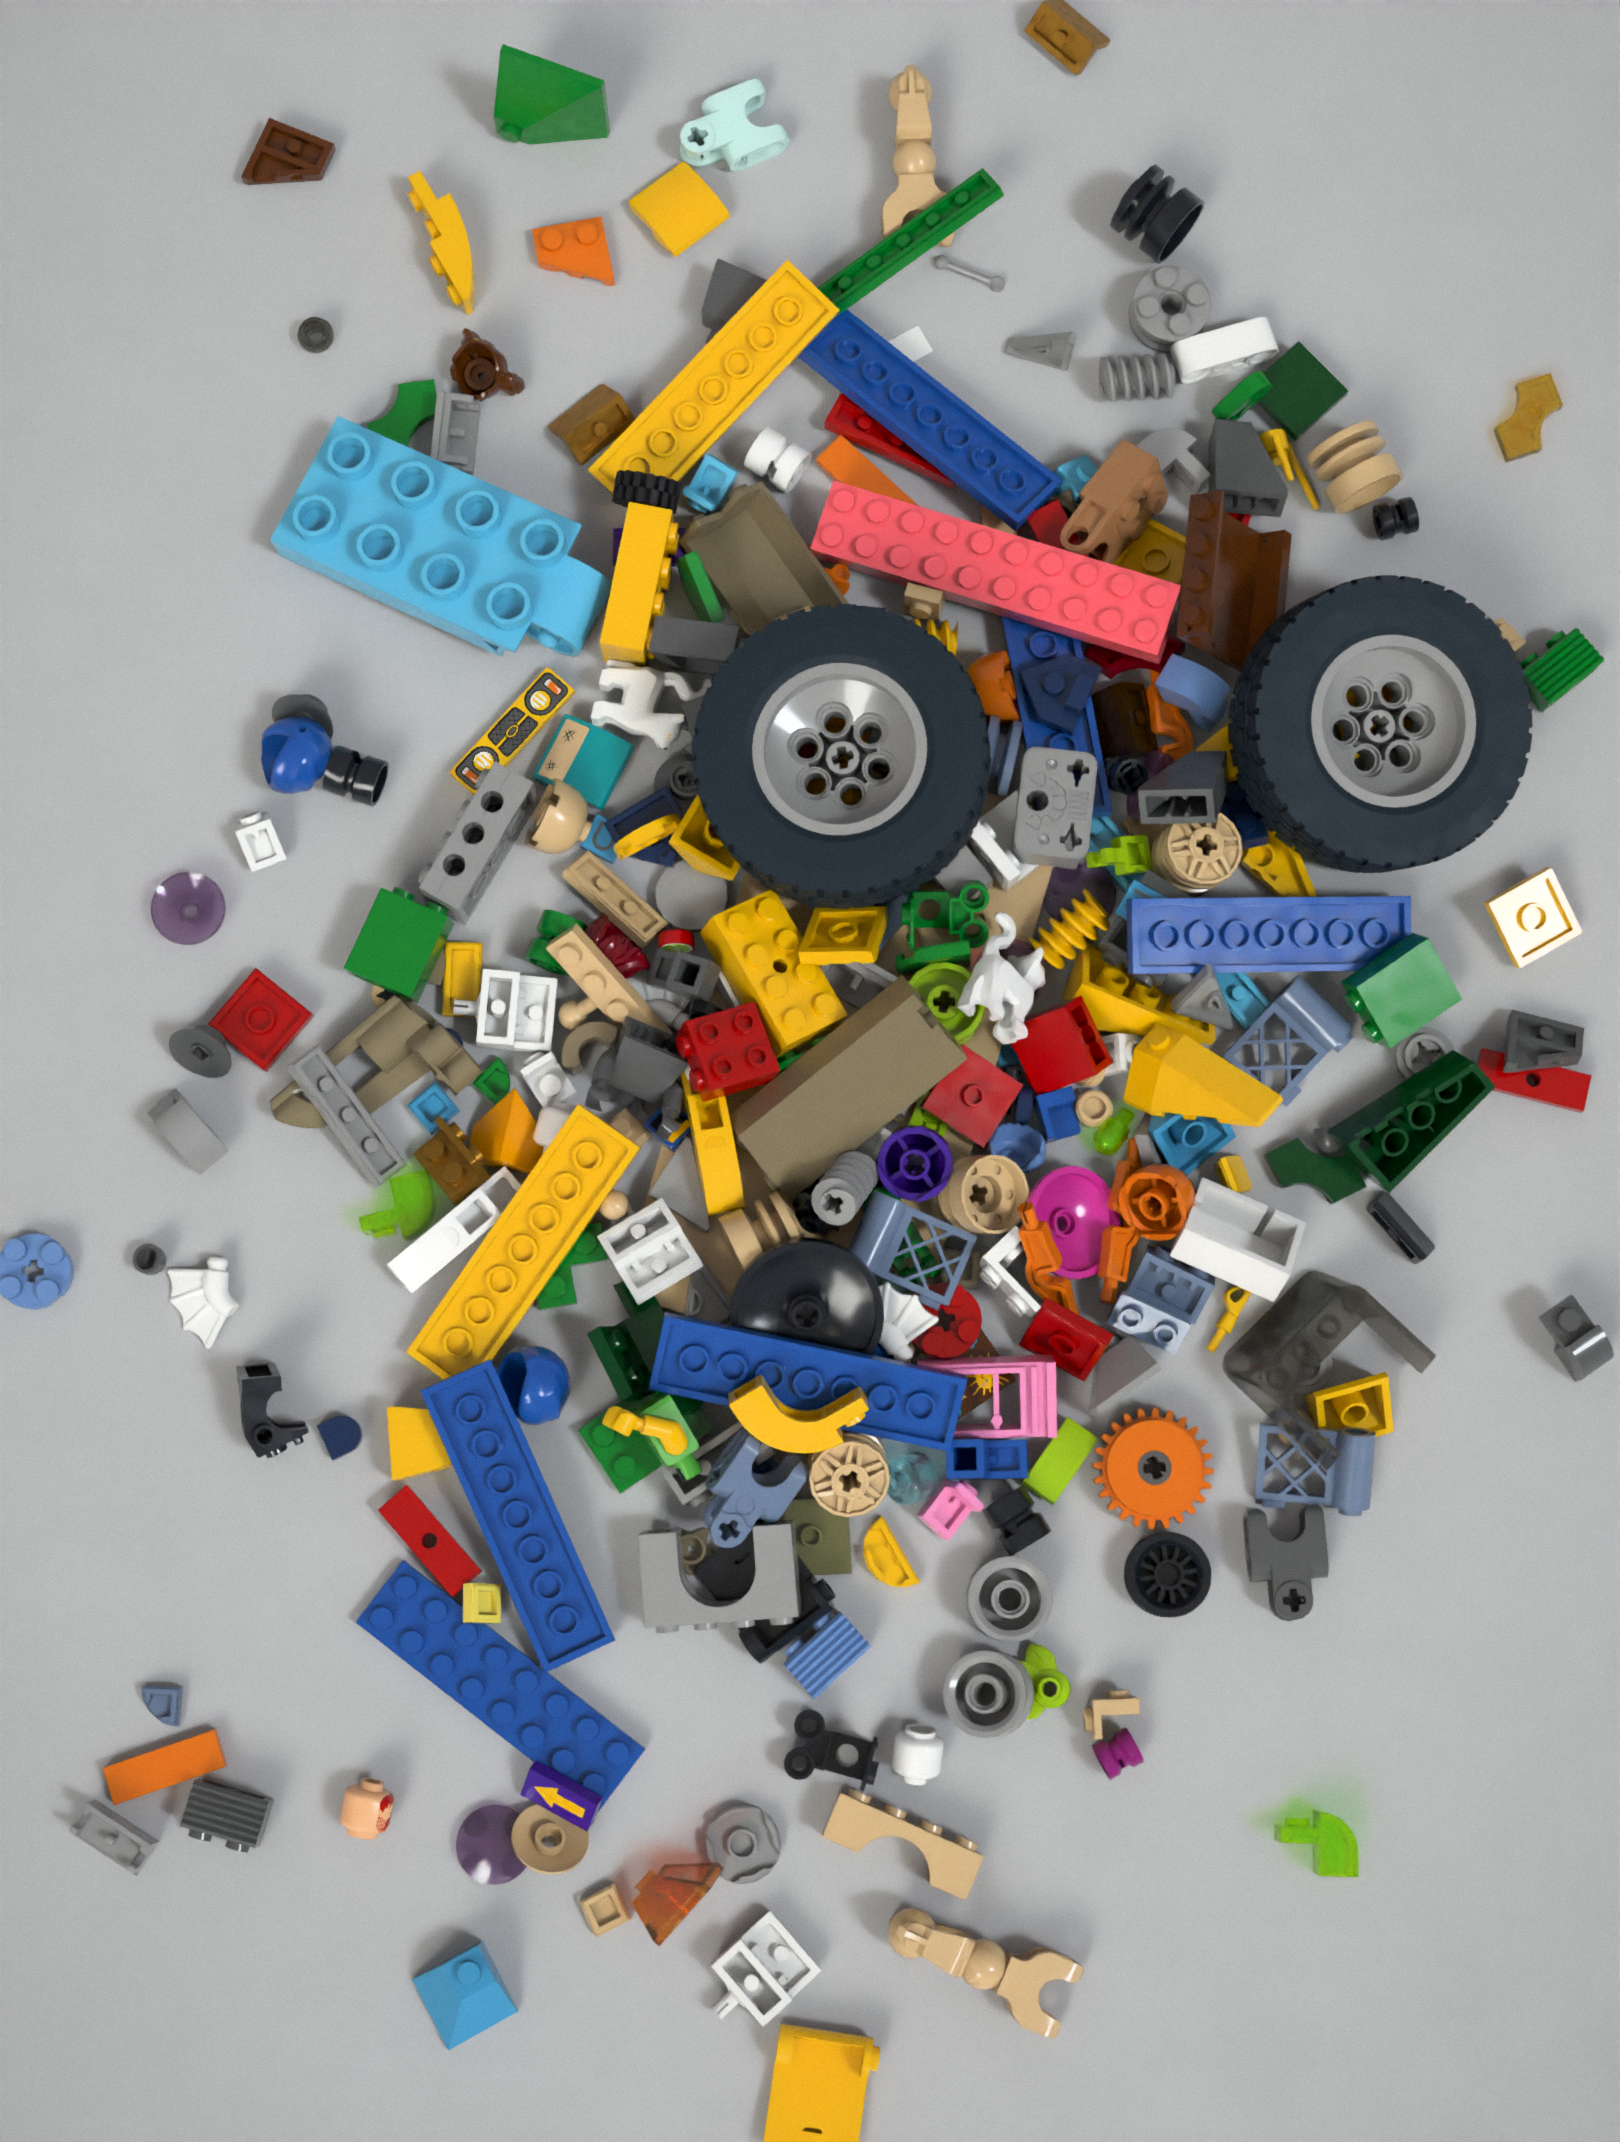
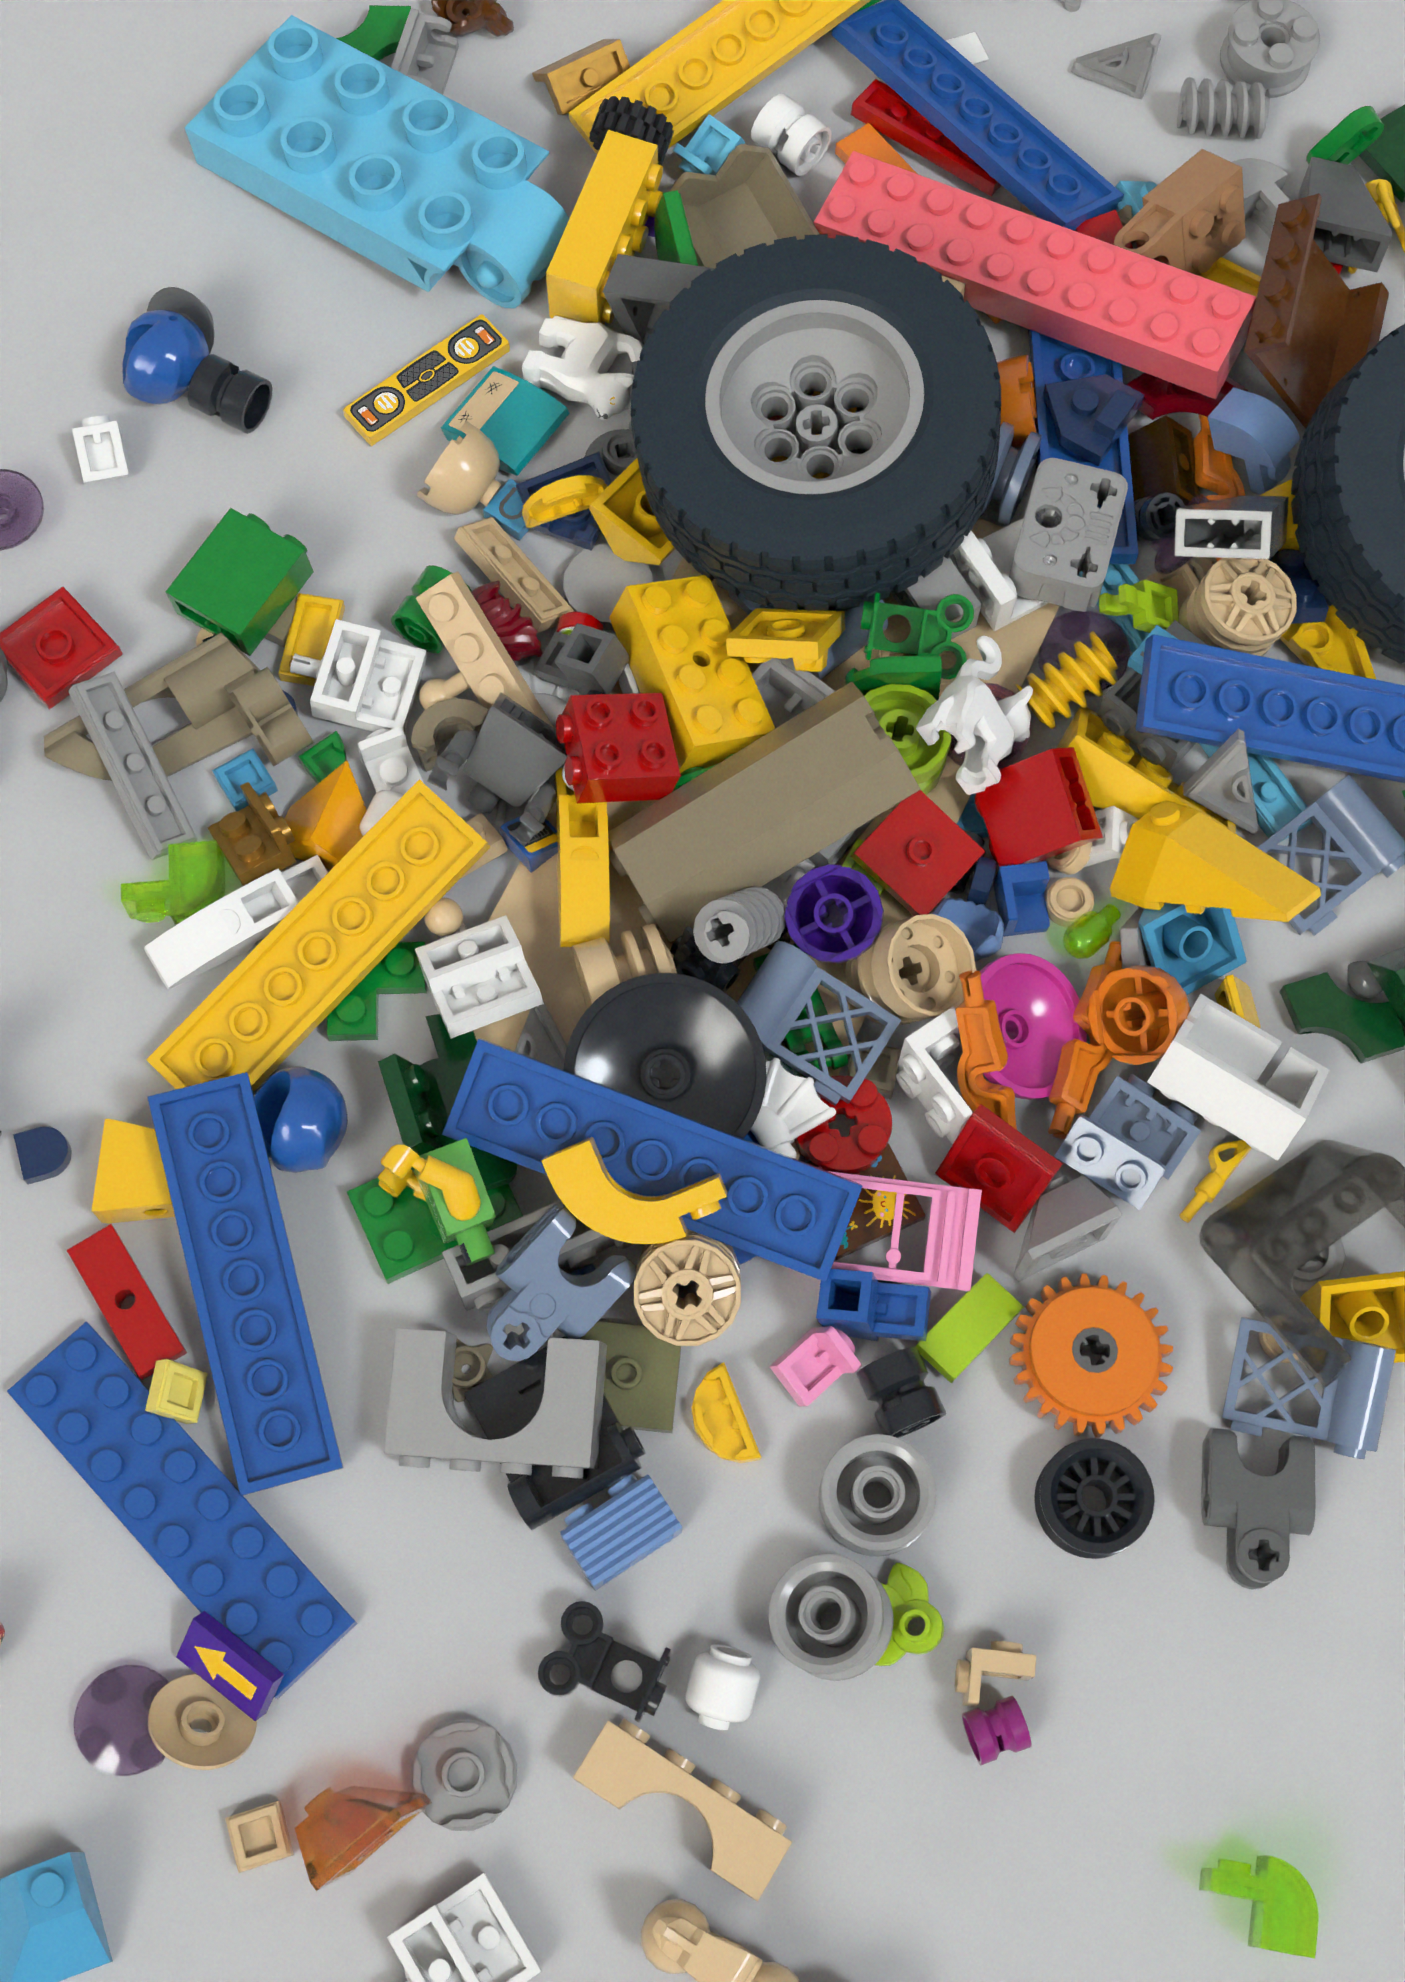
camera: 10 degrees right, 10 degrees down
(497, 830) = (361, 479): light grey brick -> none
(681, 1187) = (535, 912): light grey tile -> none
(912, 1478) = (770, 1316): clear light blue head -> none
(1224, 350) = (1326, 95): white beam -> none

